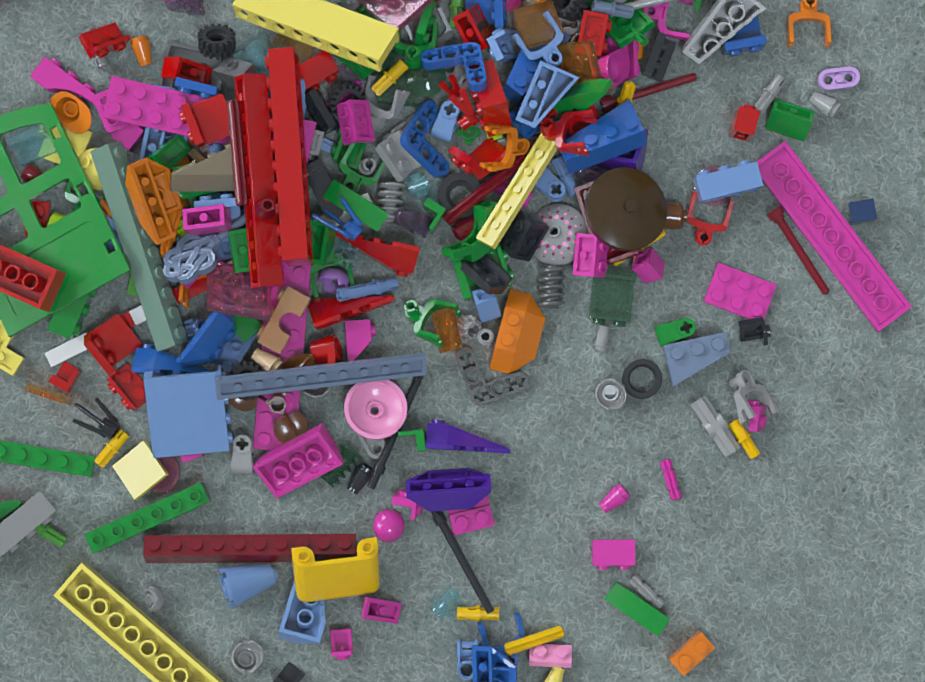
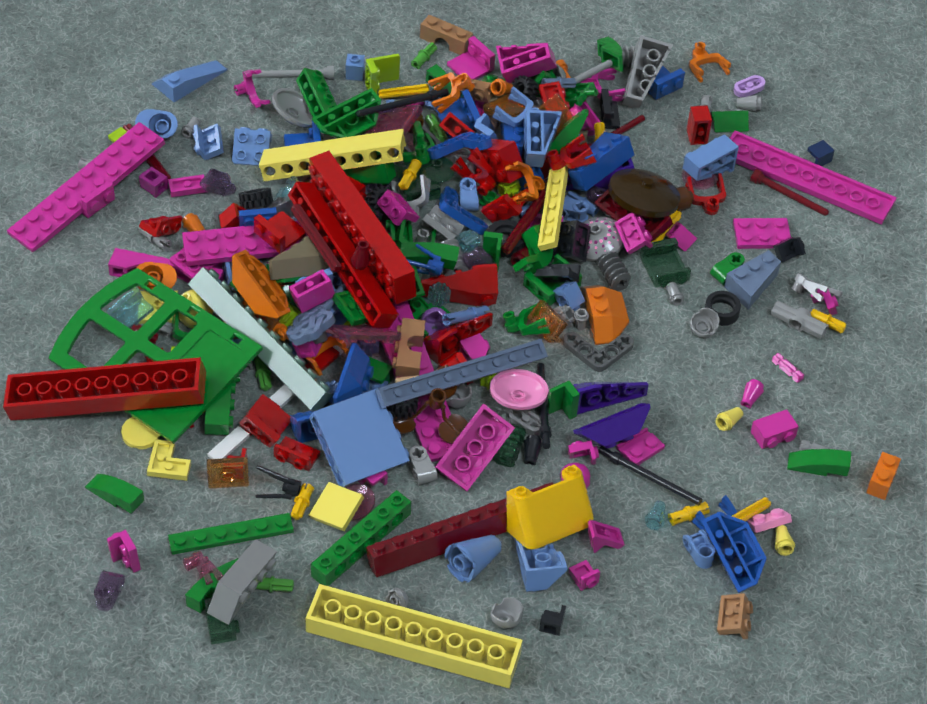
camera: 30 degrees left, 35 degrees down
(575, 519) = (728, 419): none -> light yellow cone

